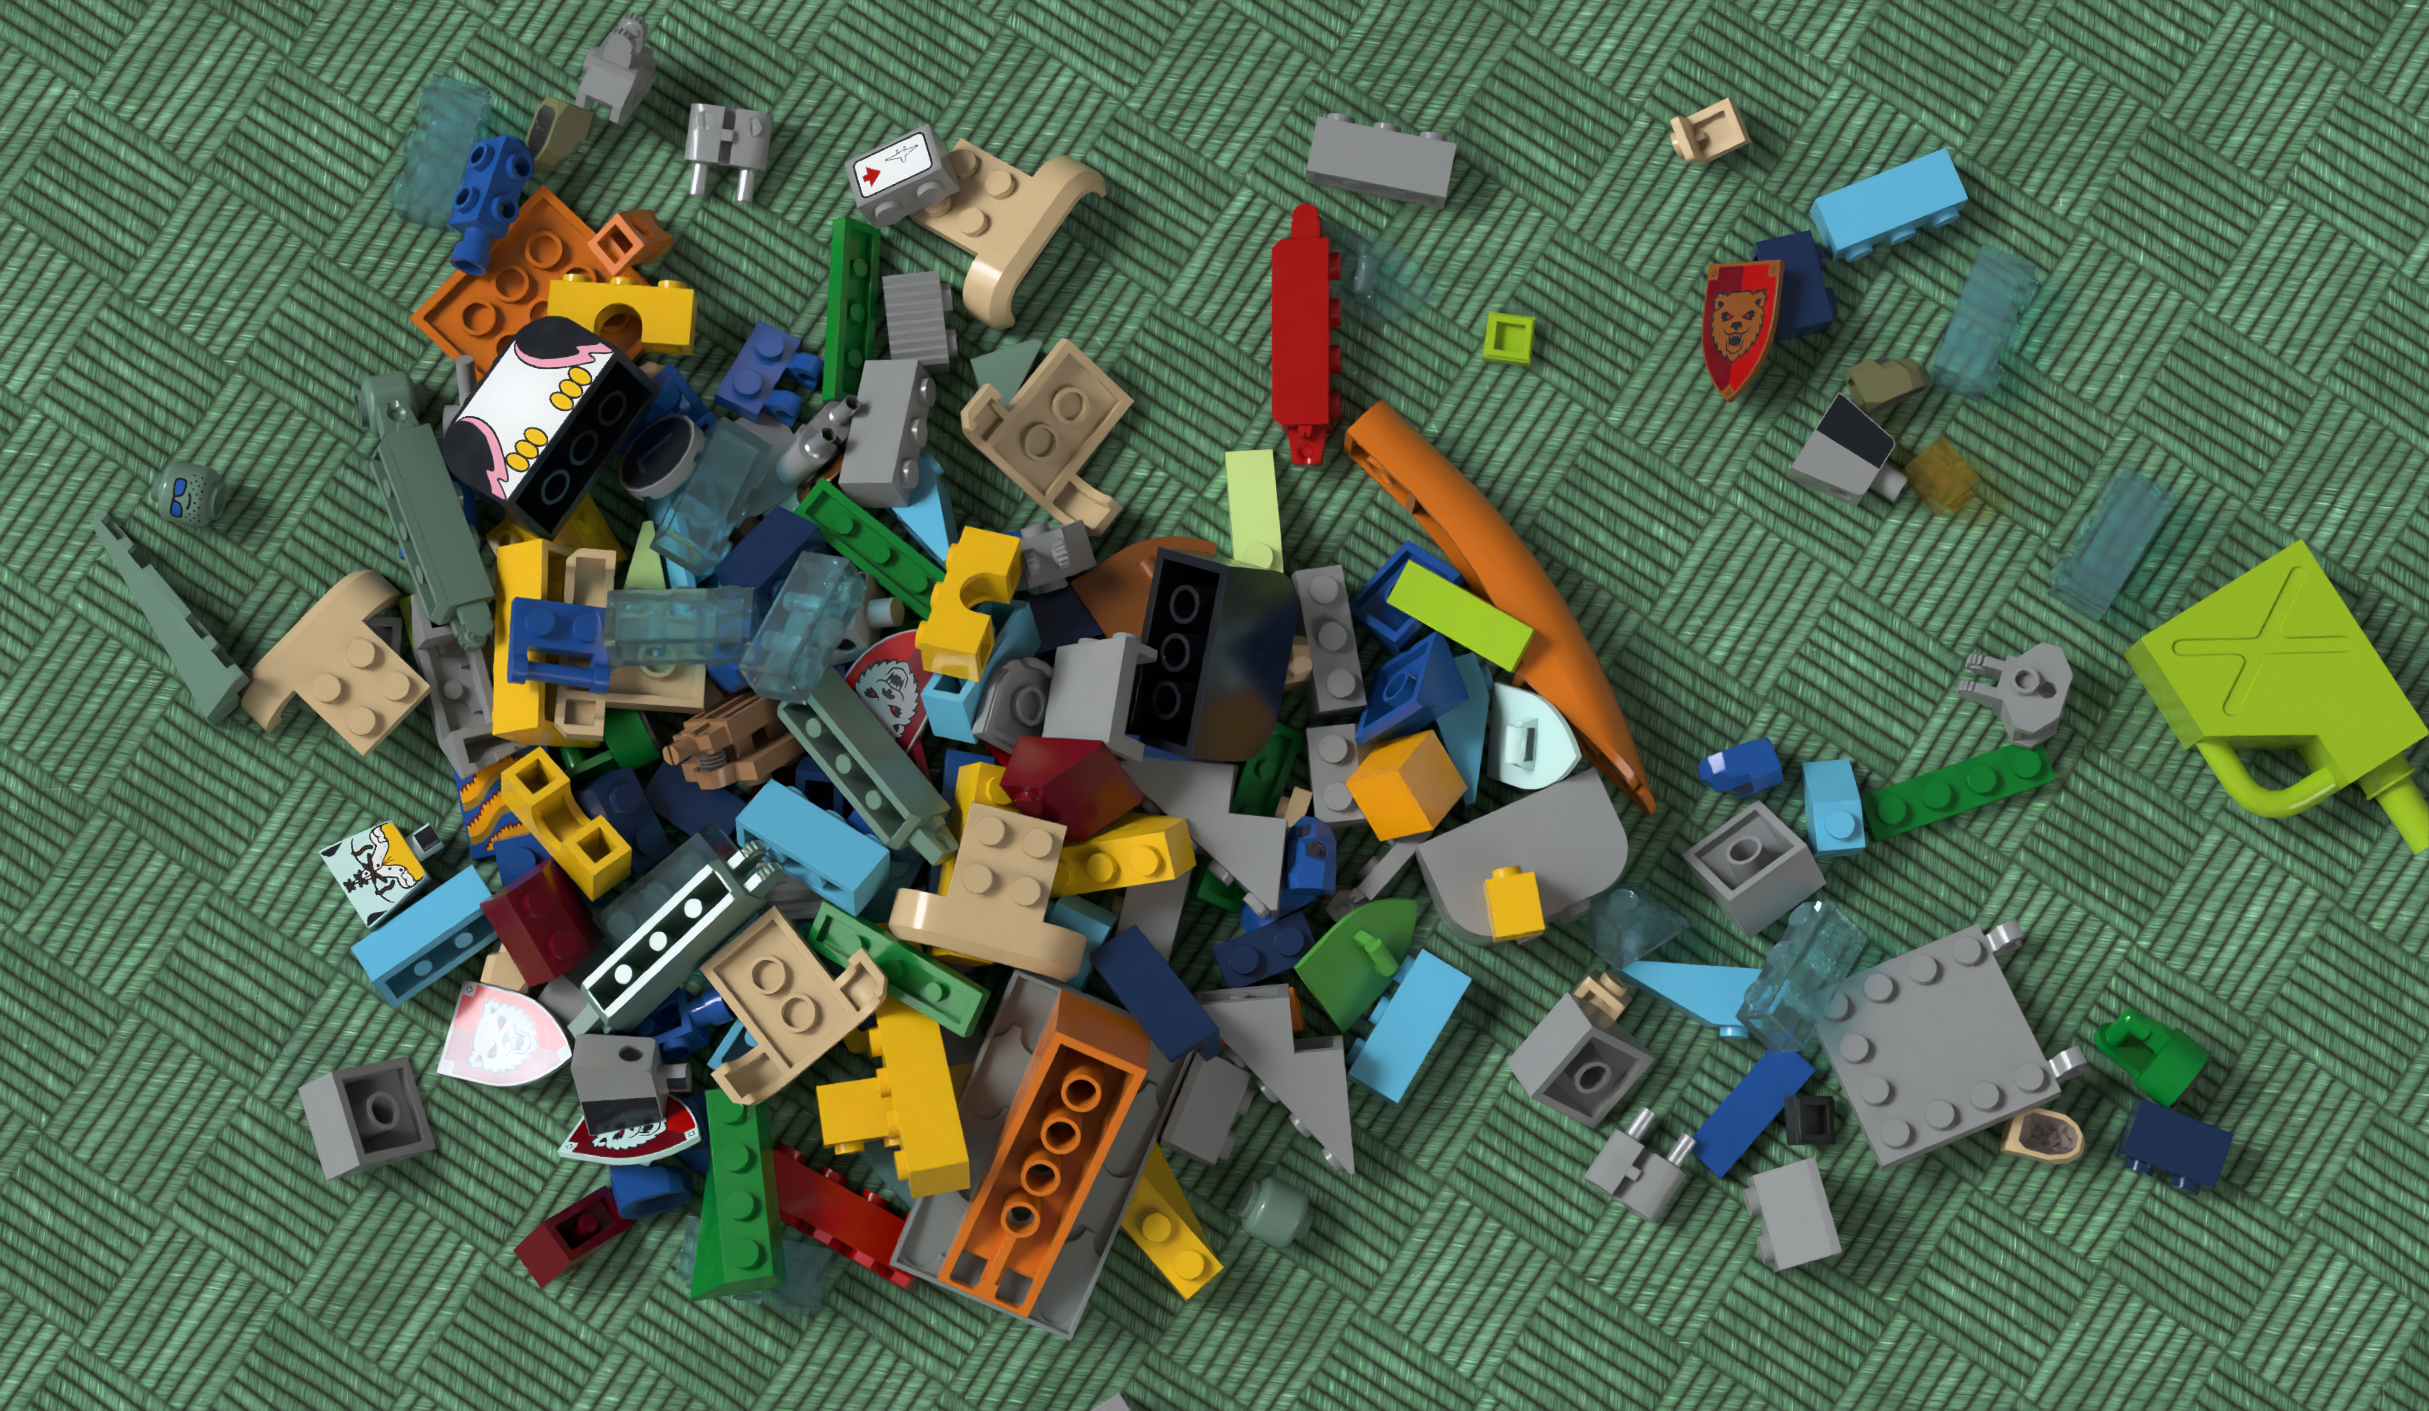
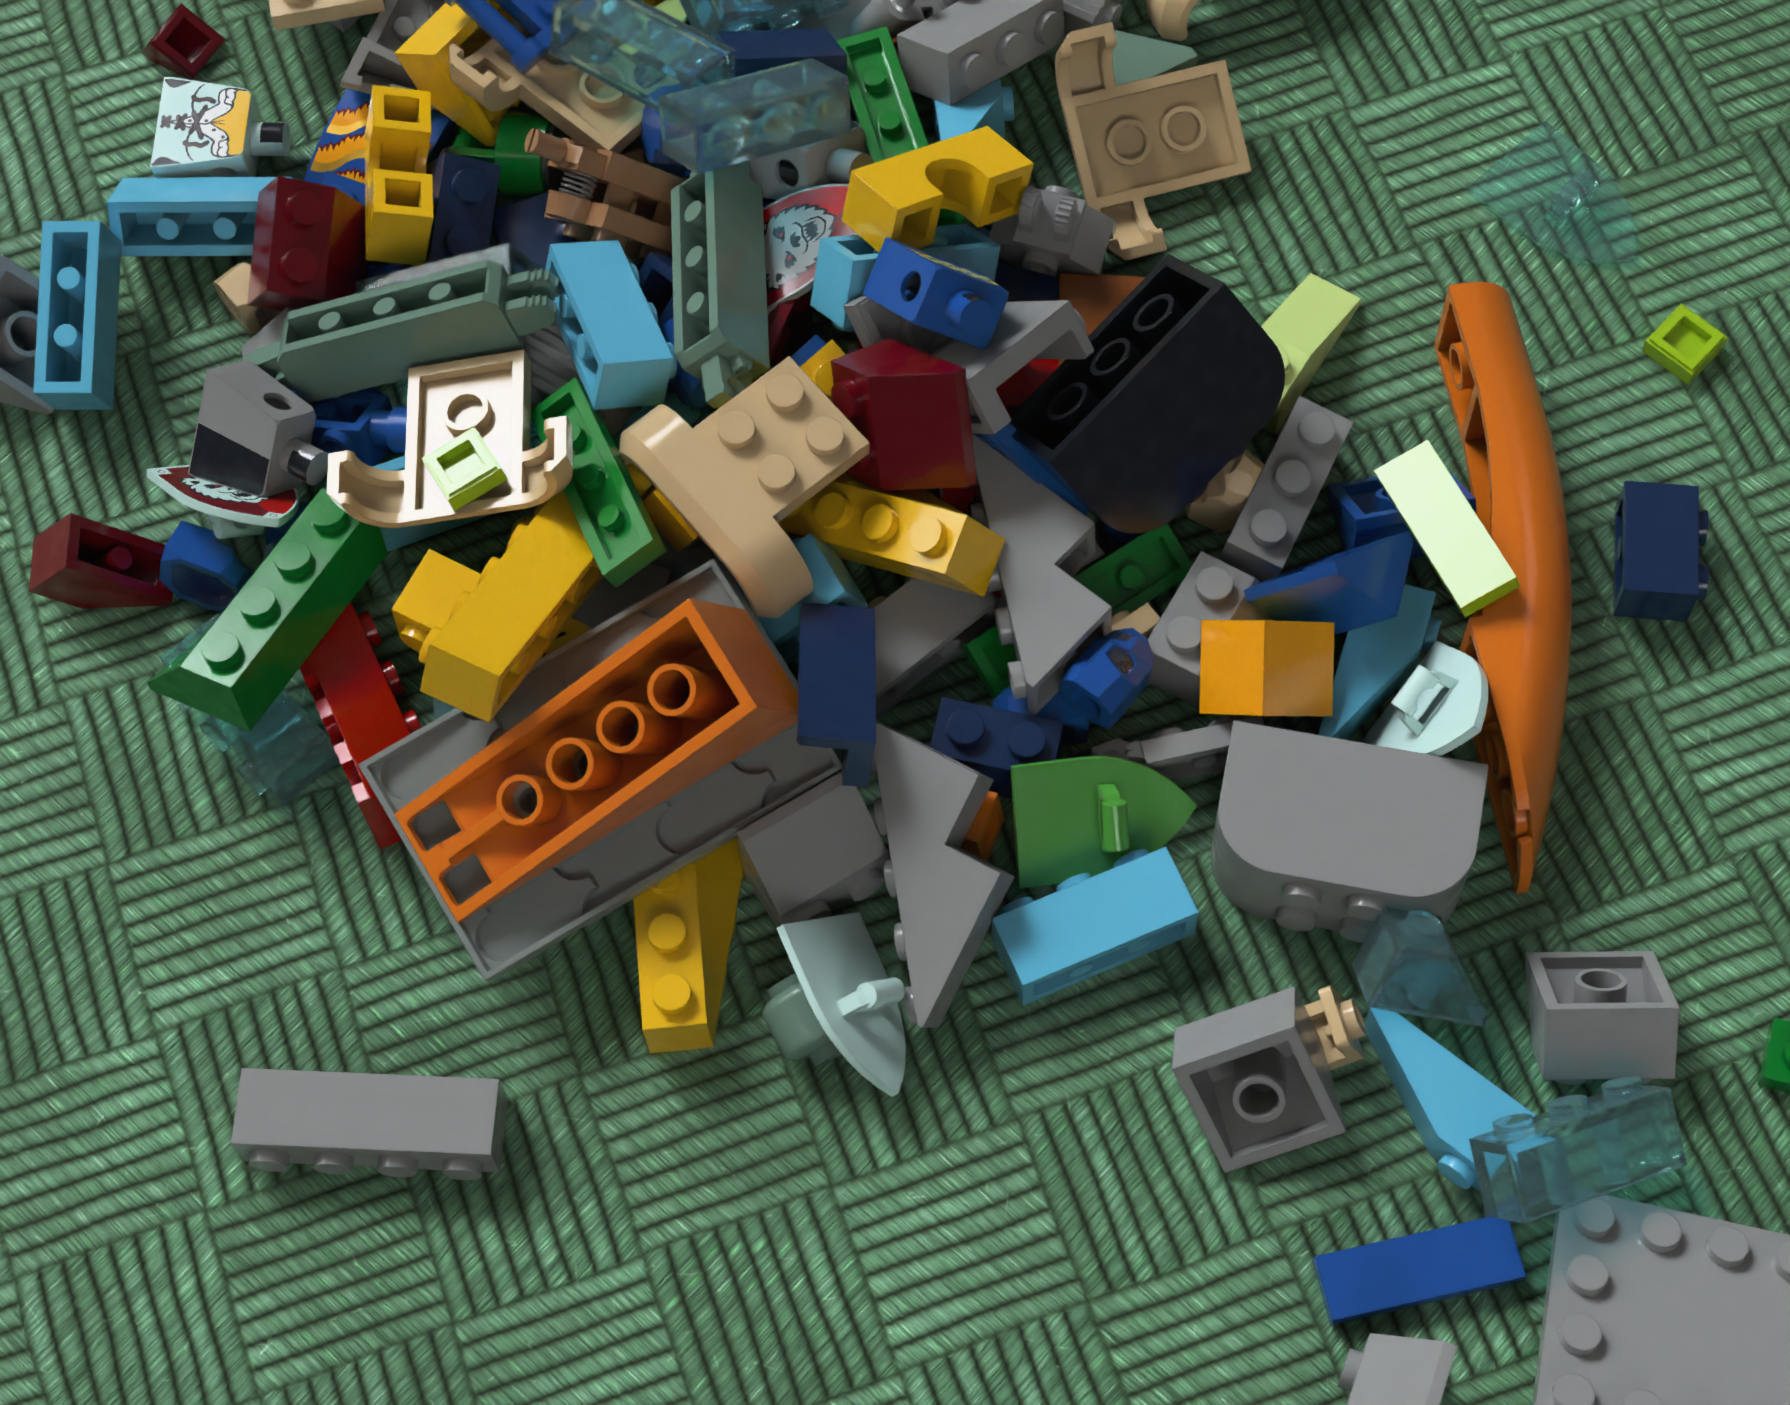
camera: 45 degrees right, 15 degrees down
(289, 806) = (183, 43): none -> dark red slope
(415, 1075) = (77, 315): none -> medium azure brick
(502, 1039) = (185, 343): shield -> none
(806, 1020) = (464, 469): none -> tile
(1038, 690) = (950, 297): none -> blue torso
(1293, 1181) = (851, 994): none -> light aqua shield
(1303, 337) = (1469, 208): red hinge -> none
(1380, 161) = (1662, 106): light grey brick -> none
(1513, 904) = (1293, 837): yellow brick -> none
(1591, 515) = (1658, 551): none -> dark blue brick
(1636, 1175) = (1237, 1252): light grey piece -> none
(1742, 769) = (1656, 900): blue rock -> none
(1809, 1120) = (1481, 1327): pearl dark grey tile -> none
(1832, 809) = (1731, 1014): medium azure slope -> none

